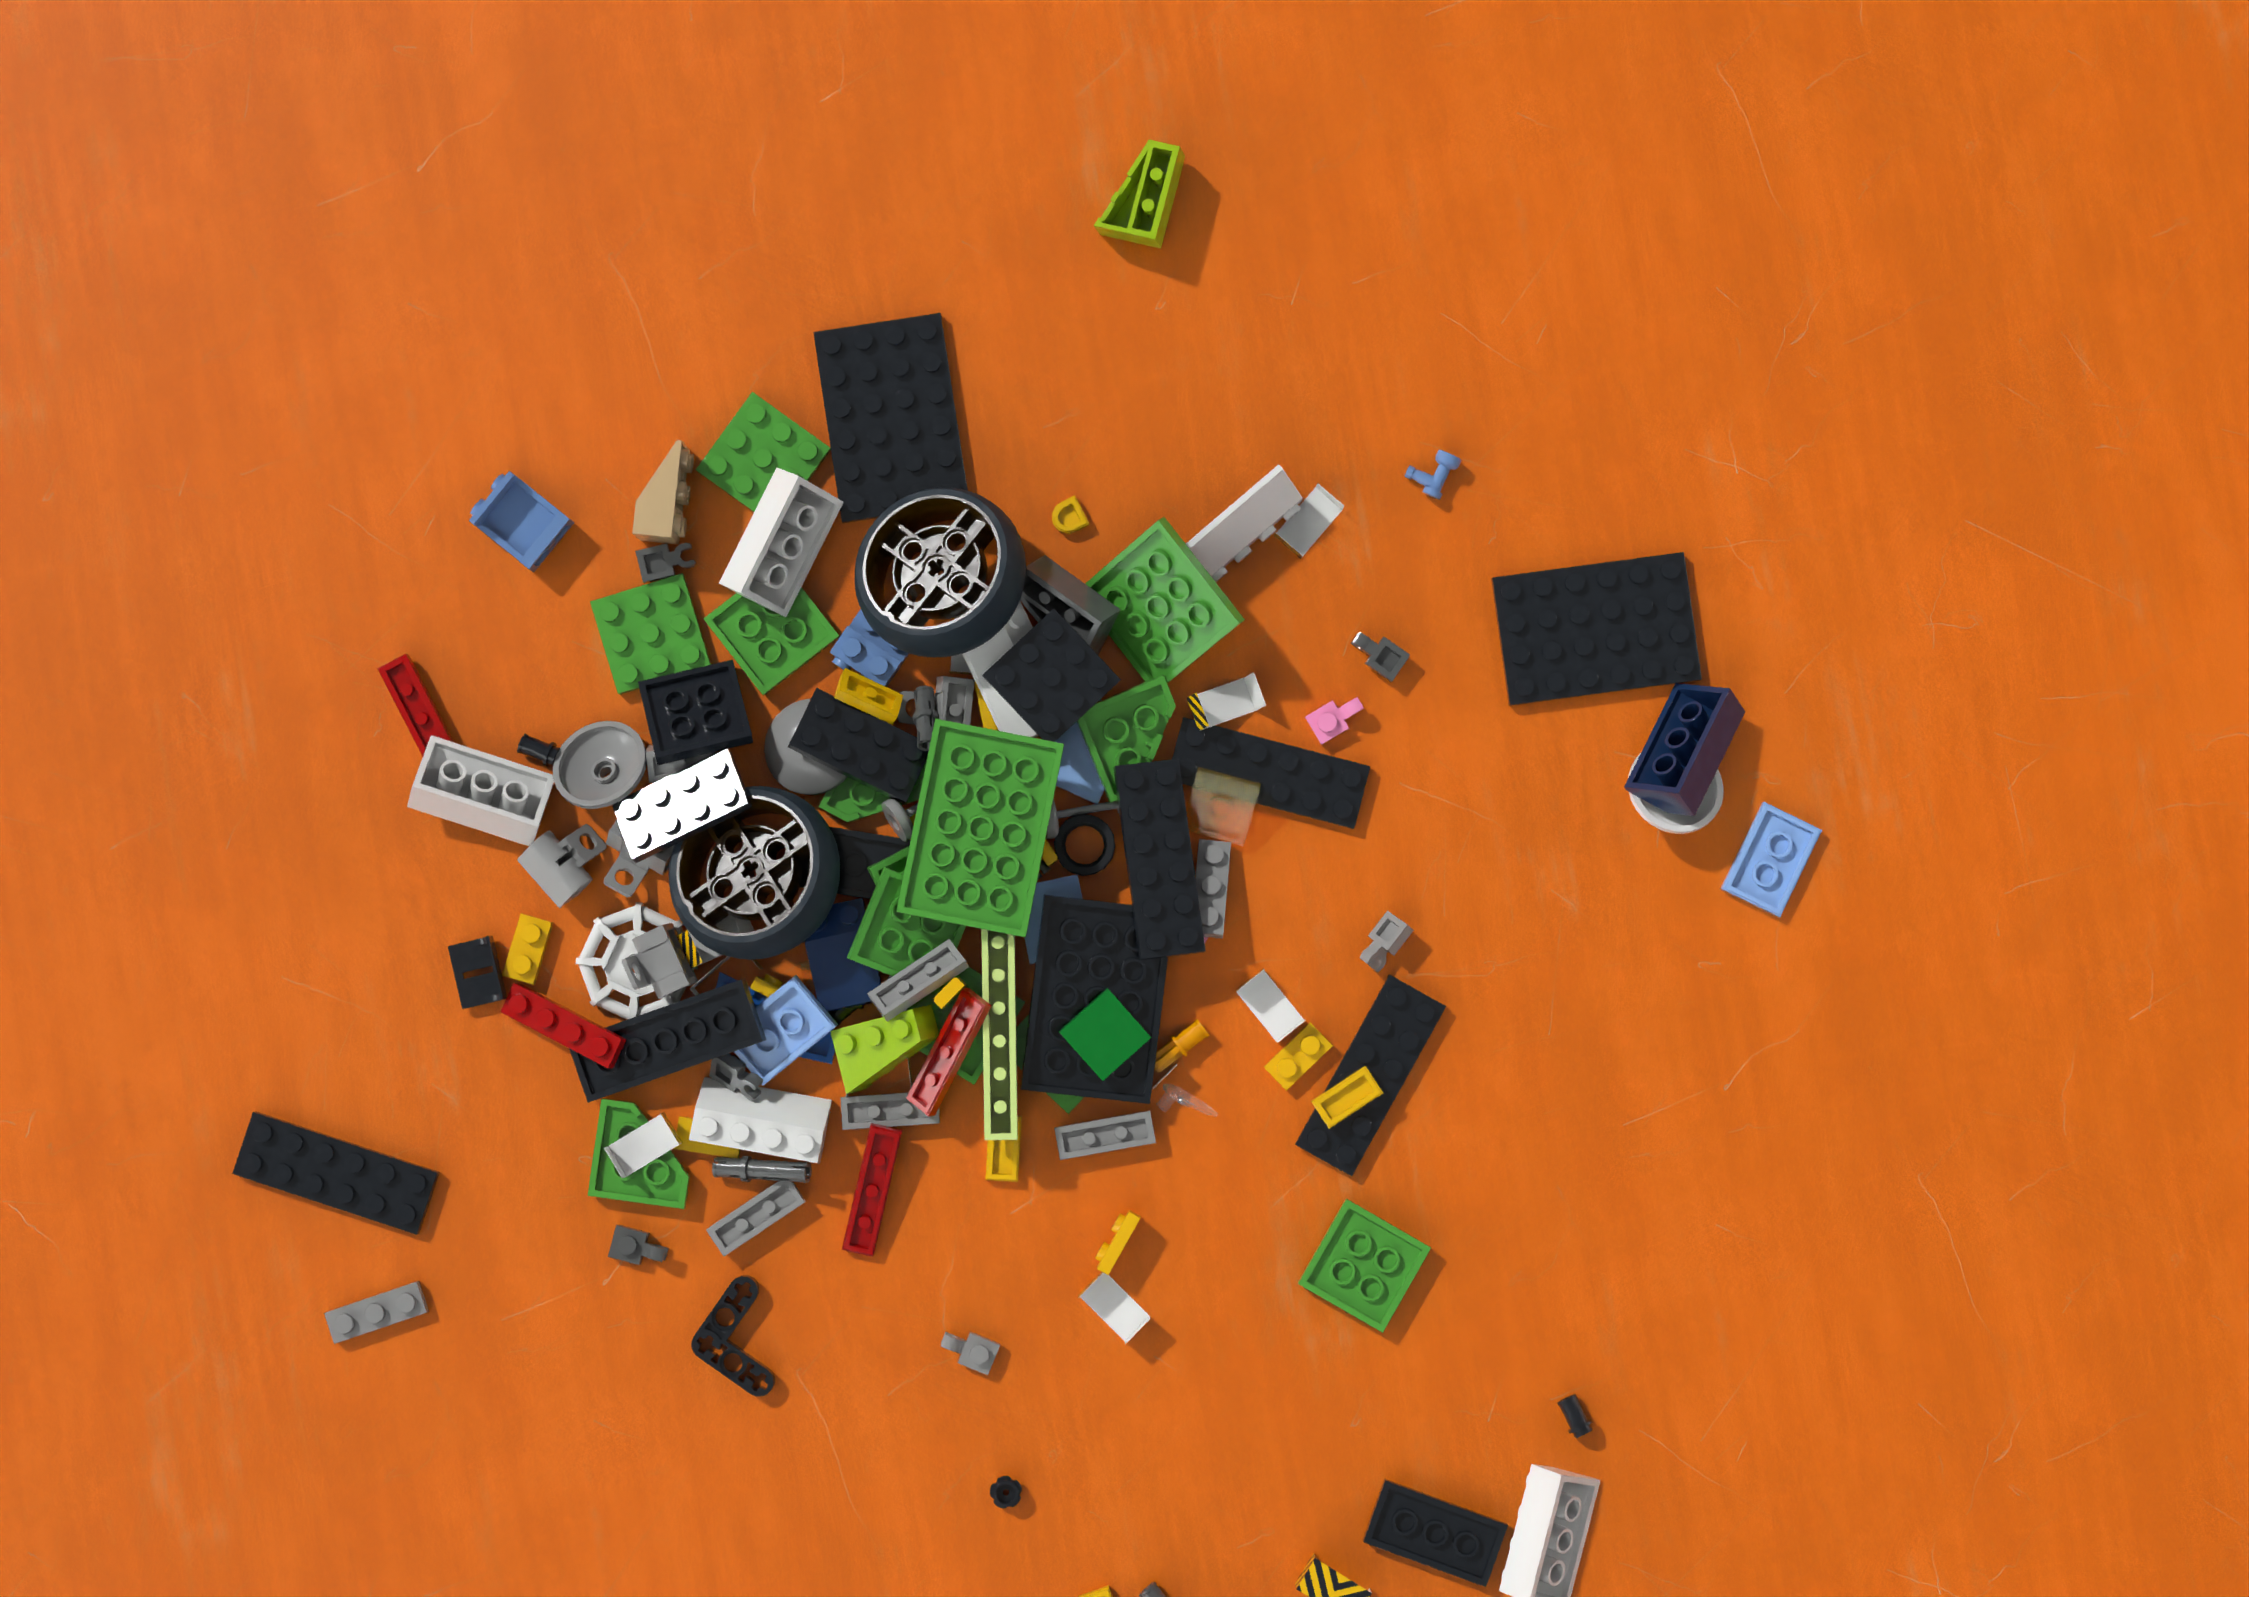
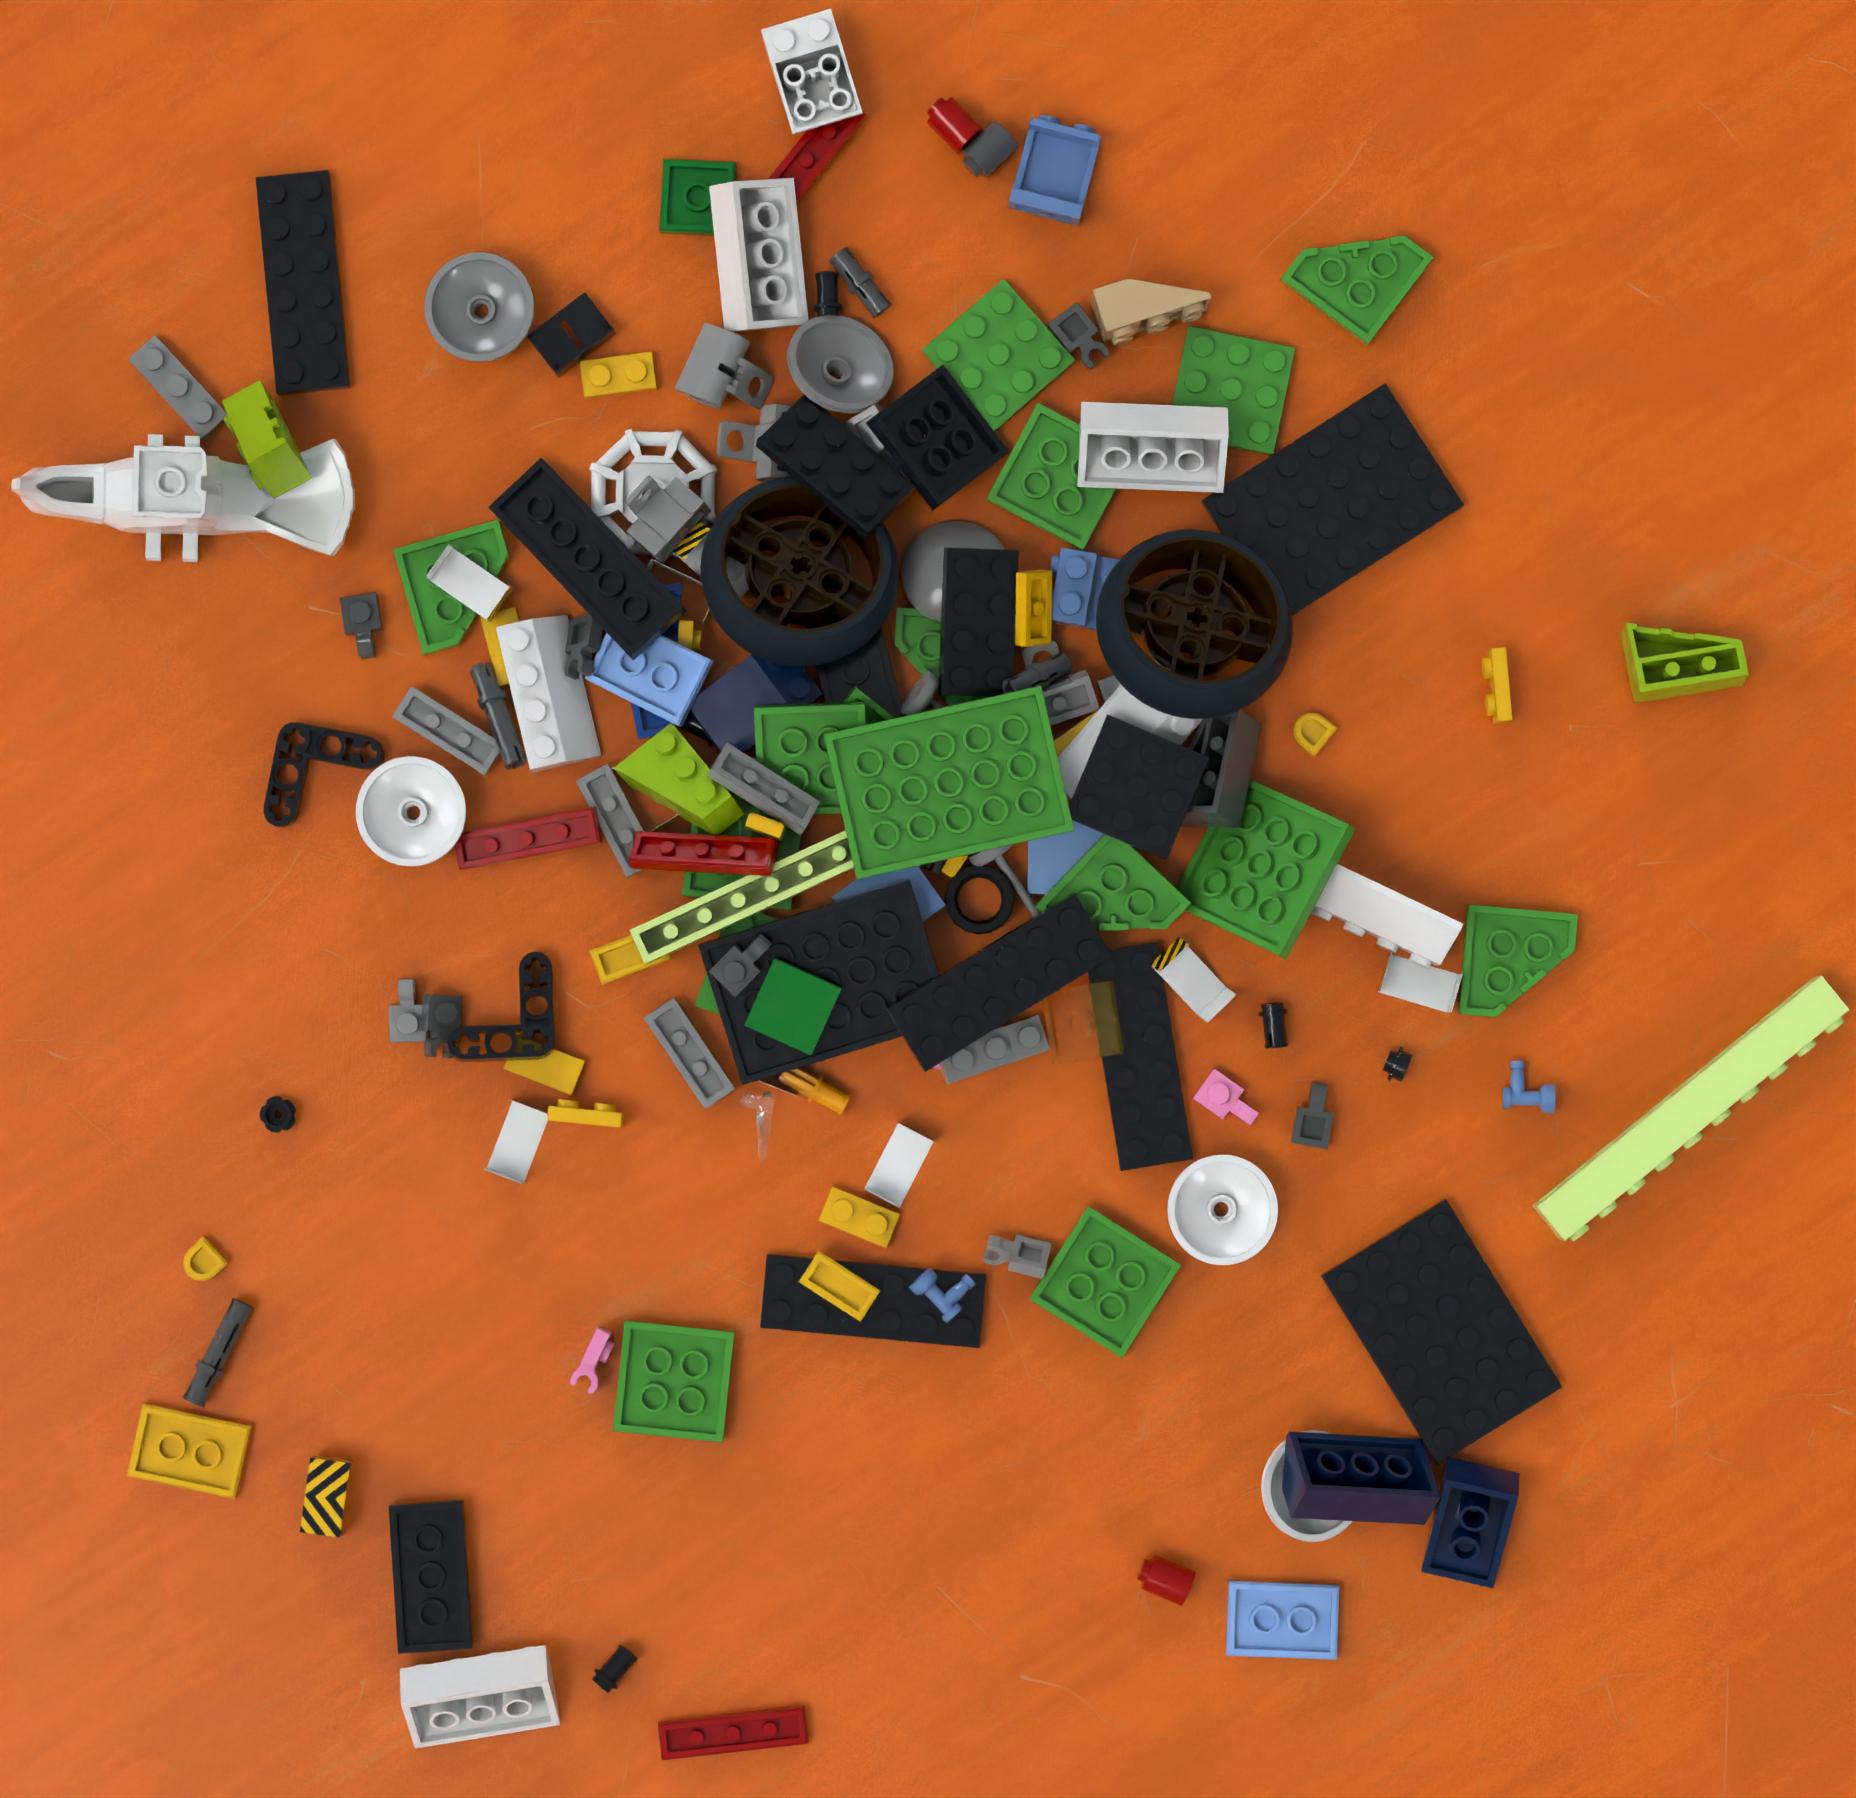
camera: 65 degrees right, 0 degrees up
(350, 682) = (811, 71): none -> white slope
(399, 1042) = (475, 282): none -> light grey dish
(405, 827) = (687, 194): none -> green tile
(446, 586) = (953, 124): none -> red brick
(451, 1261) = (265, 440): none -> lime wedge
(466, 1343) = (196, 495): none -> white animal
(480, 567) = (988, 150): none -> dark grey brick
(540, 719) = (860, 282): none -> dark grey pin
(563, 1025) = (555, 446): red plate -> none
(720, 316) = (1358, 281): none -> bright green plate
(793, 1294) = (385, 804): none -> white dish
(986, 1324) = (440, 1016): none -> dark grey plate
(1024, 1255) = (529, 1023): none -> black beam
(1053, 1064) = (738, 967): none -> dark grey plate
(1061, 1257) = (556, 1070): none -> yellow tile
(1111, 356) = (1496, 670): none -> yellow plate
(1291, 652) = (1274, 1024): none -> black pin
(1312, 1315) = (598, 1350): none -> bright pink plate
(1318, 438) = (1509, 954): none -> bright green plate
(1367, 568) = (1397, 1064): none -> black plate
(1398, 1017) = (947, 1302): none -> medium blue piece
(1437, 881) = (1105, 1281): none -> bright green plate
(1445, 755) = (1249, 1216): none -> white dish
(1506, 349) = (1690, 1108): none -> yellowish green brick
(1668, 1342) = (733, 1732): none -> red tile
(1698, 938) = (1166, 1579): none -> red brick
(1759, 673) = (1471, 1522): none -> dark blue slope

